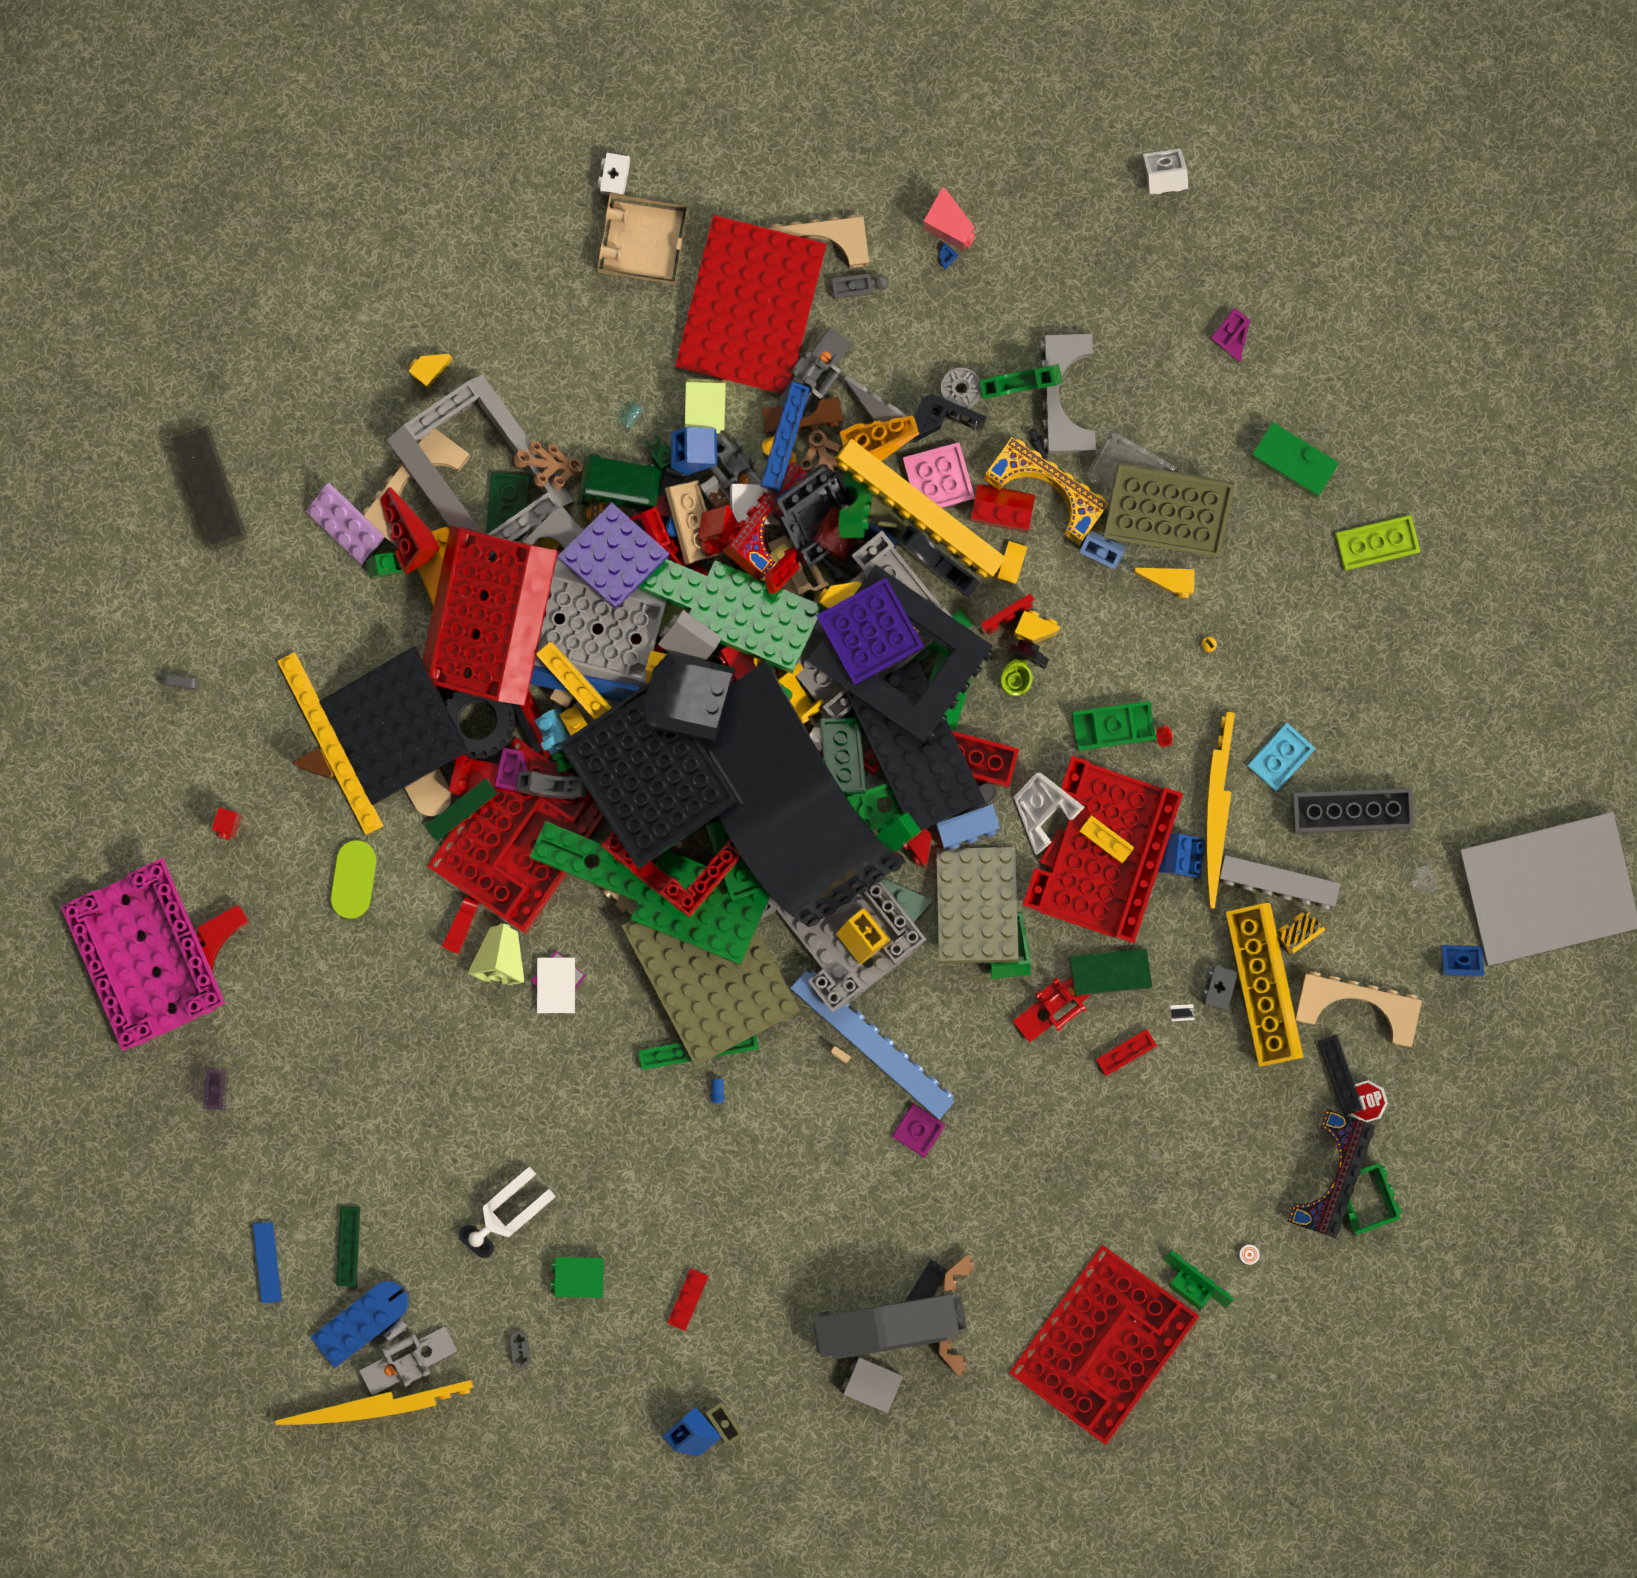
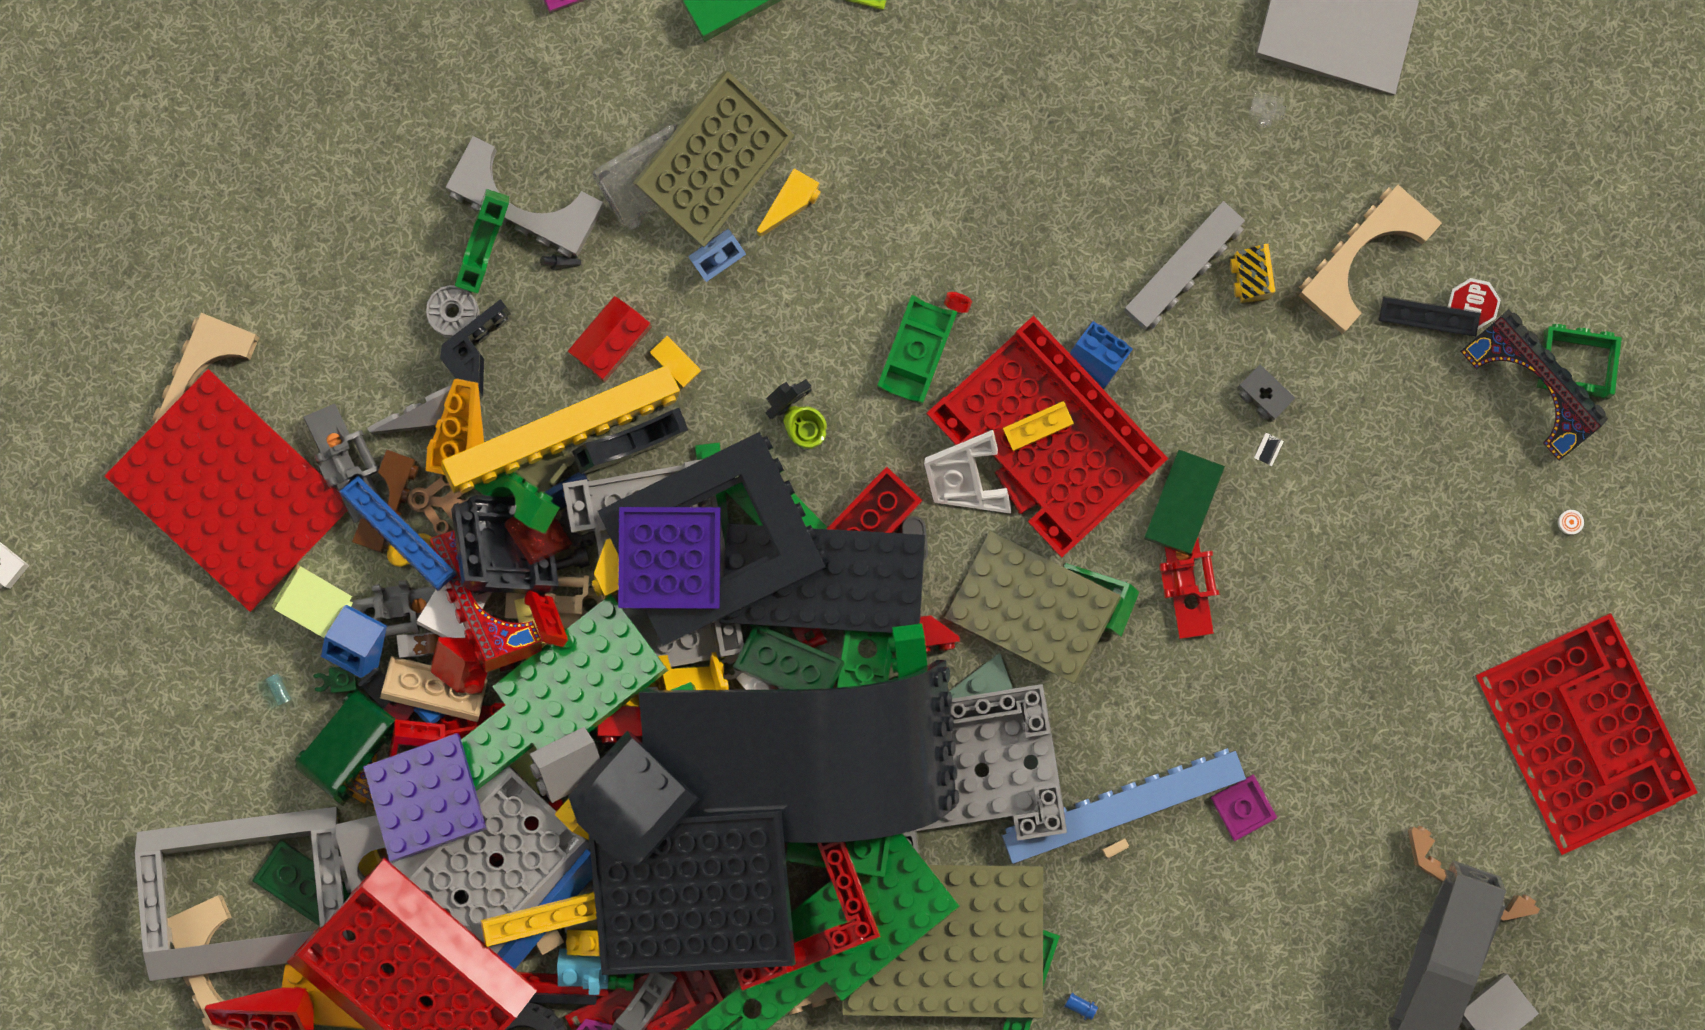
camera: 65 degrees left, 0 degrees up
(428, 368) = (96, 887): yellow slope -> none
(571, 467) = (298, 790): medium nougat plant -> none
(641, 240) = (87, 571): tan piece -> none
(858, 285) = (274, 361): dark grey plate -> none
(863, 936) = (1000, 751): yellow slope -> none
(927, 1281) = (1415, 889): black hinge -> none
(940, 475) = (535, 386): bright pink plate -> none
(947, 255) = (297, 246): blue tile -> none
(949, 222) = (261, 221): coral slope -> none
(968, 827) = (942, 570): medium blue slope -> none
(1007, 615) = (732, 398): red plate -> none
(1019, 462) = (653, 250): arch -> none
(1034, 628) = (763, 377): yellow slope -> none
(1126, 1052) = (1280, 533): red plate -> none
(1194, 1285) = (1574, 600): green bracket -> none
(1206, 647) = (885, 203): yellow hinge -> none
(1217, 808) = (1068, 288): yellow slope -> none
(1264, 984) = (1290, 343): yellow brick -> none
(1281, 757) = (1049, 189): medium azure tile -> none
(1352, 811) = (1151, 144): dark grey brick -> none
(1462, 961) = (1376, 118): blue slope -> none

